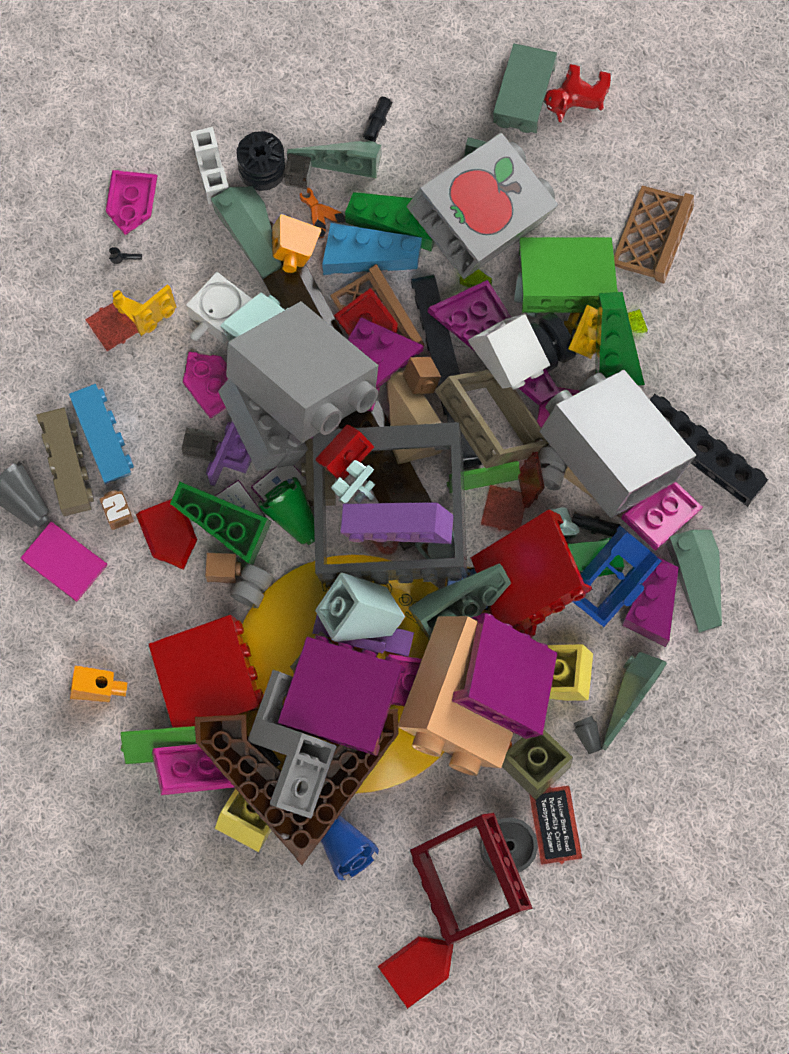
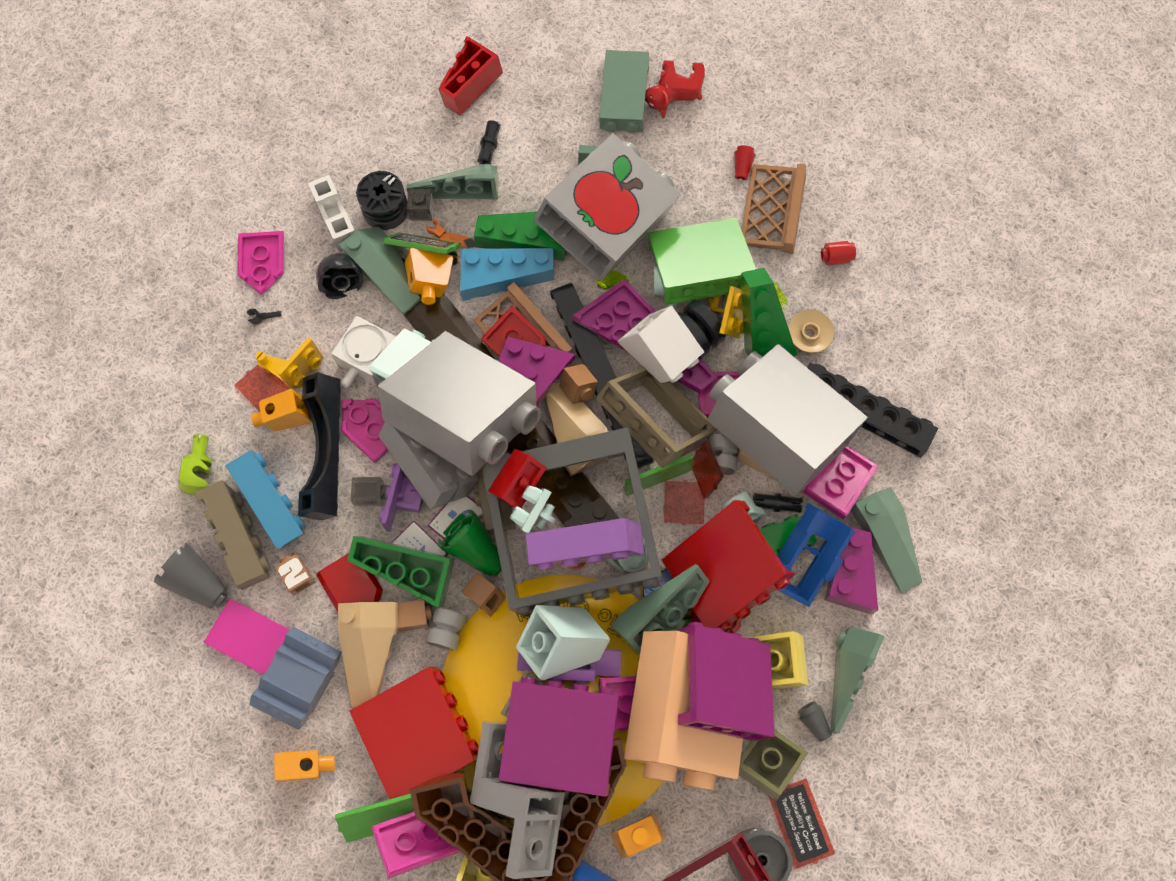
camera: 10 degrees left, 0 degrees up
(36, 387) = (192, 463): none -> lime piece
(104, 604) = (296, 678): none -> sand blue slope
(130, 353) = (281, 411): none -> light orange torso
(169, 350) = (320, 493): none -> black arch
(173, 585) = (365, 643): none -> tan wedge
(204, 226) = (337, 273): none -> black cylinder
(293, 210) = (422, 243): none -> piece
(293, 560) = (483, 594): none -> medium nougat brick
(370, 48) = (470, 76): none -> red wedge
(398, 805) = (638, 836): none -> light orange torso
(632, 181) = (743, 160): none -> red cone
(664, 353) = (815, 322): none -> tan dish
(708, 290) = (838, 253): none -> red brick

